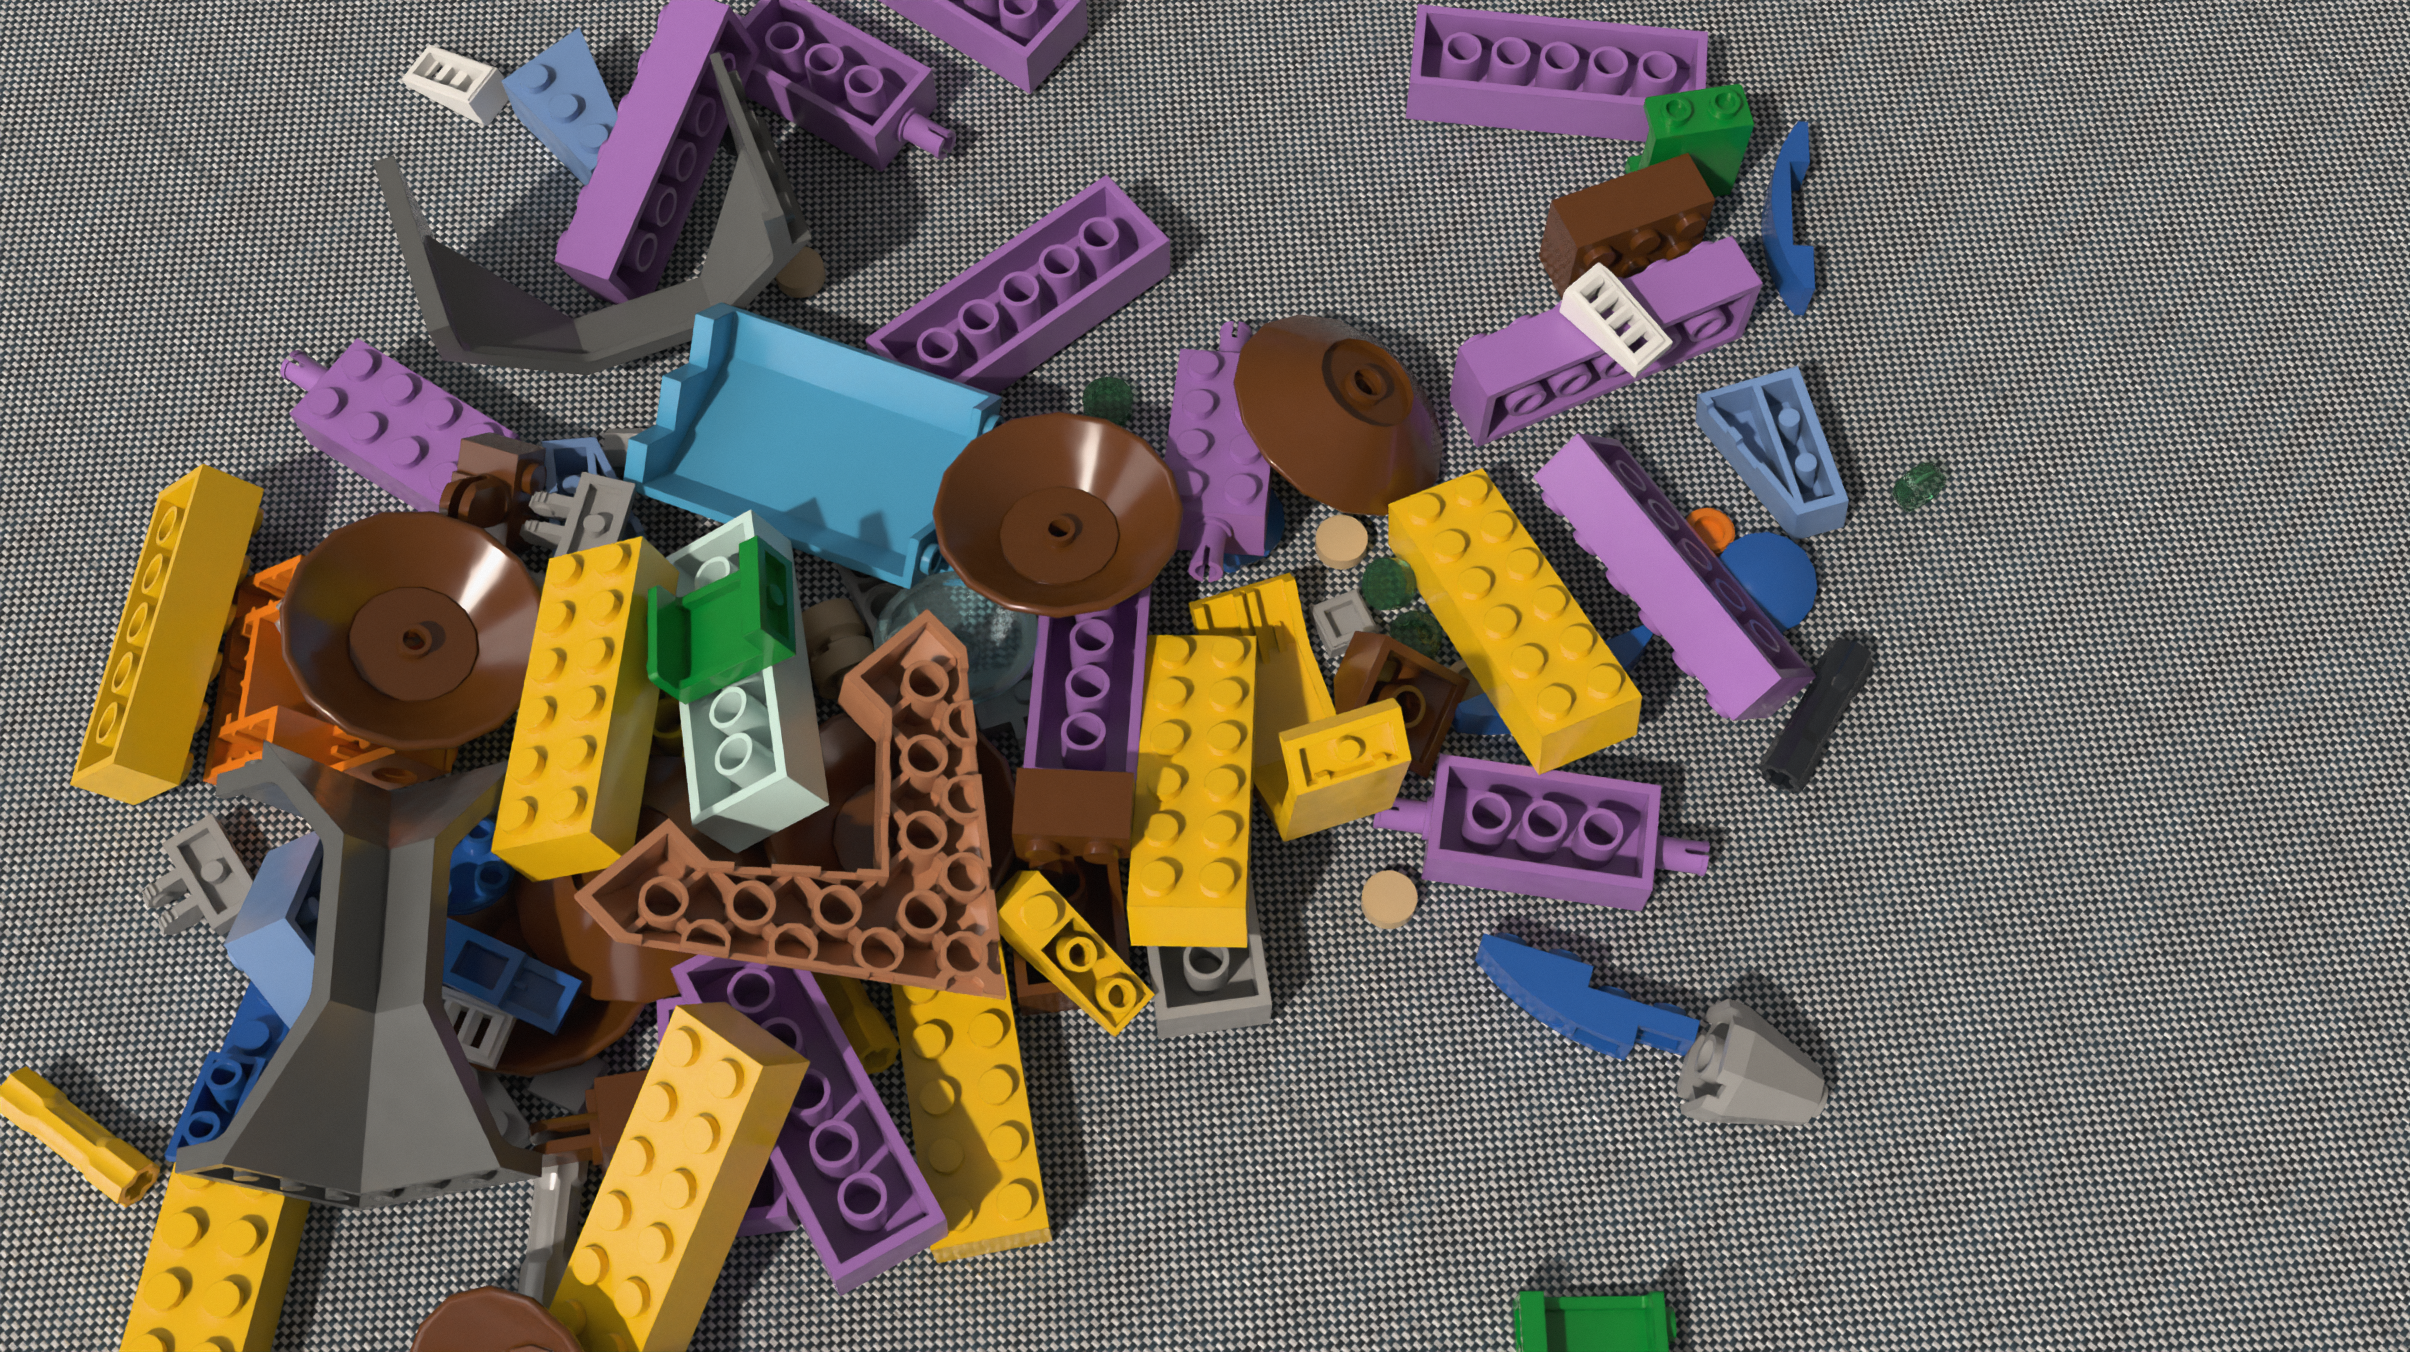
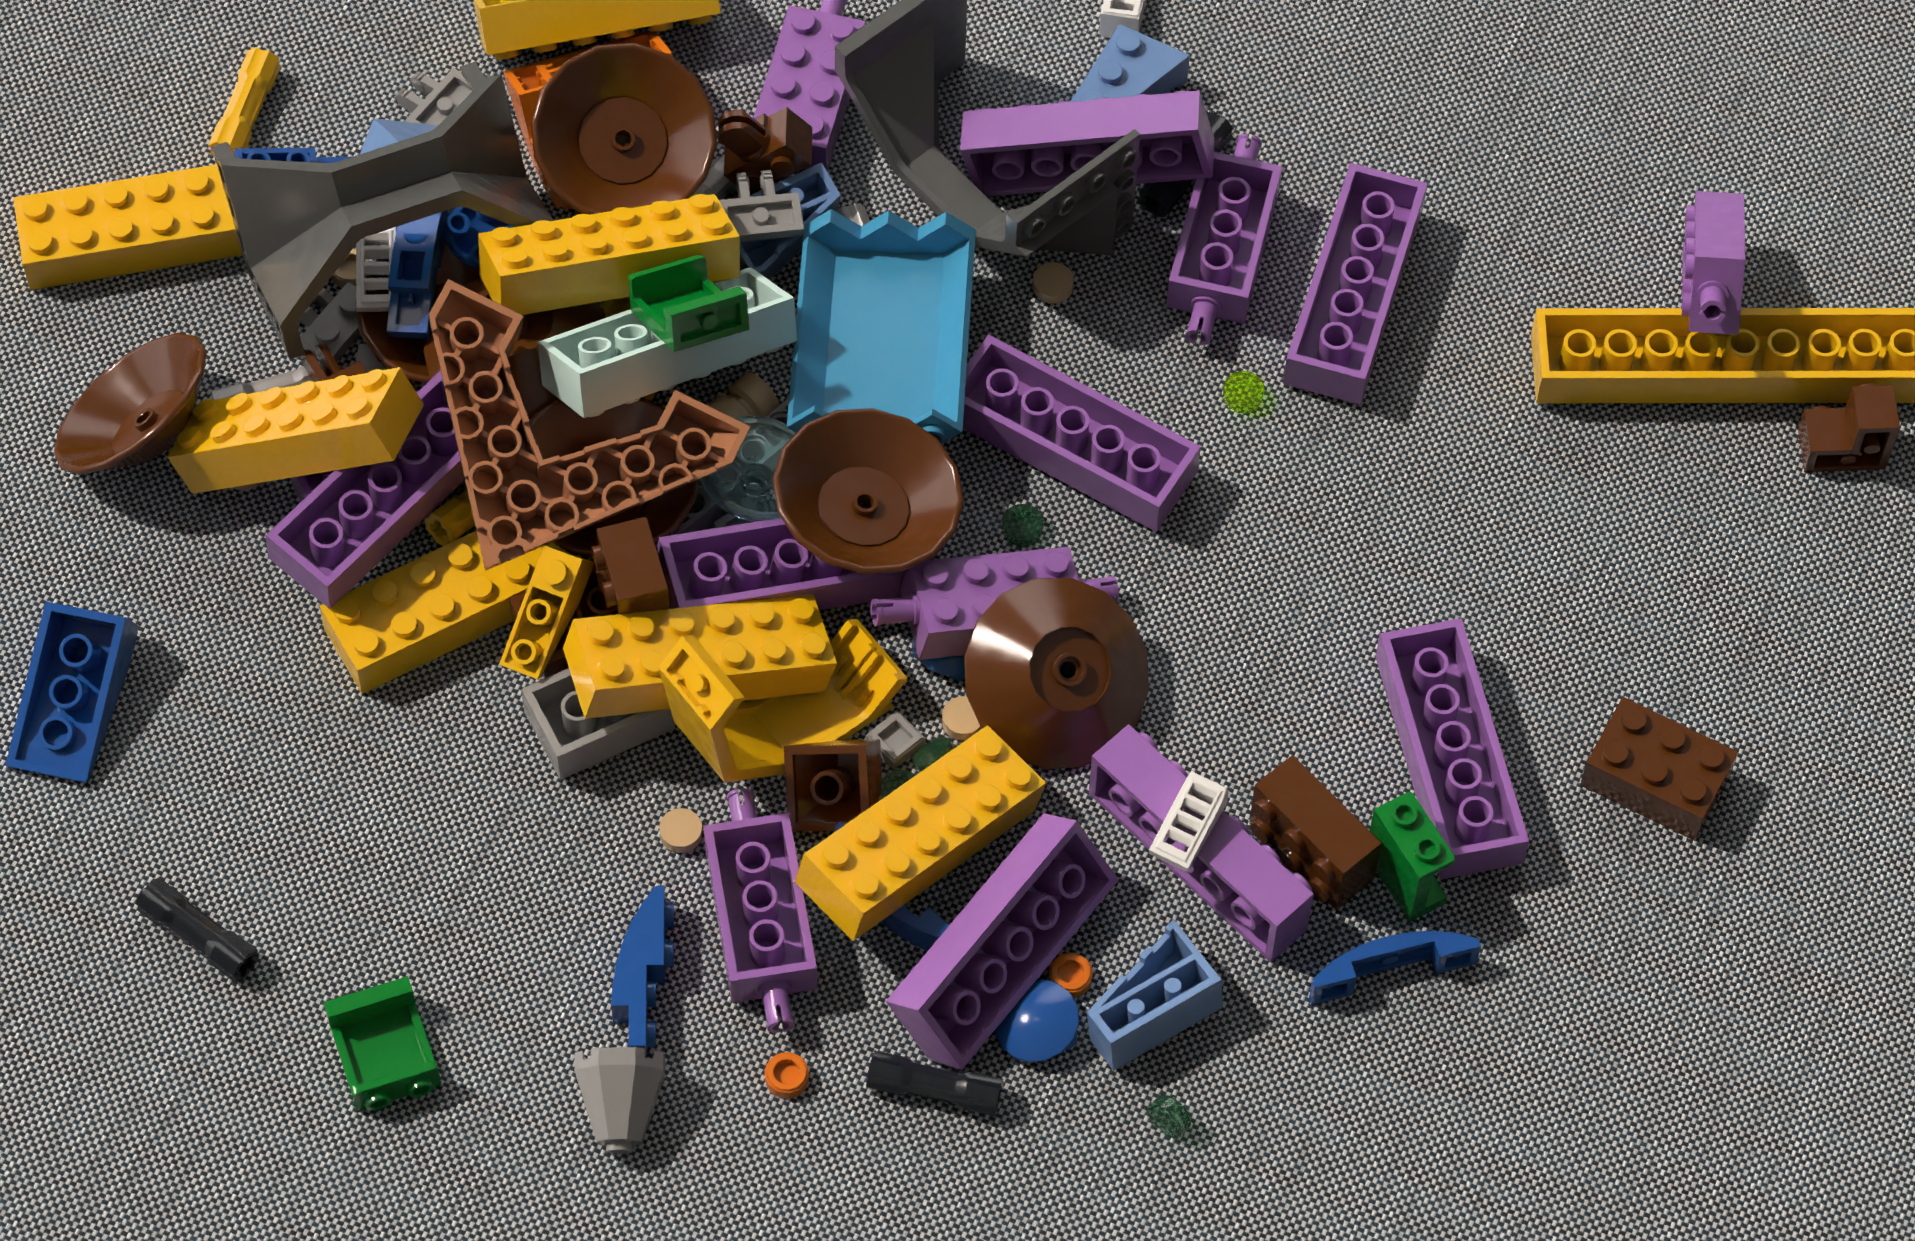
camera: 70 degrees right, 5 degrees down
(1025, 133) = (1243, 392): none -> clear neon green tile
(1754, 877) = (786, 1075): none -> orange tile

